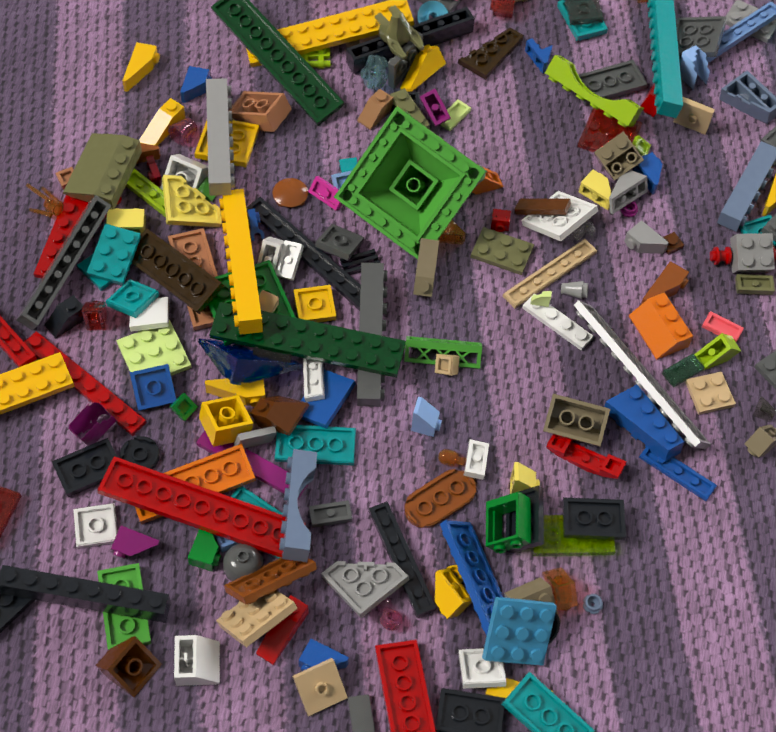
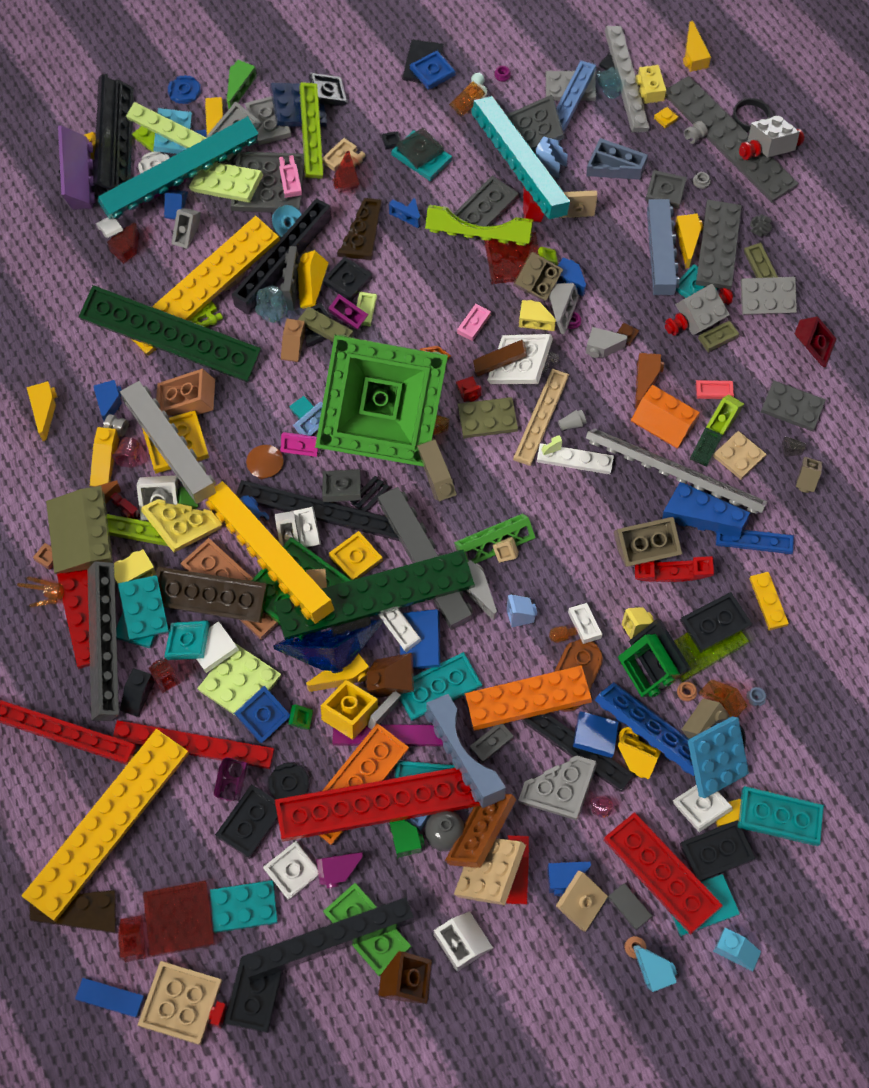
camera: 25 degrees left, 5 degrees up
(37, 532) = (243, 906): none -> teal plate
(191, 107) = (121, 425): none -> light grey wheel
(385, 493) = (528, 697): none -> orange plate
(397, 32) = (274, 256): olive piece -> none
(401, 385) = (481, 593): none -> light grey slope
(424, 555) = (595, 734): none -> blue tile
(454, 84) = (347, 279): none -> black plate
(531, 559) = (691, 687): none -> nougat plate
(540, 169) = (473, 322): none -> bright pink plate
(657, 529) = (768, 601): none -> yellow plate

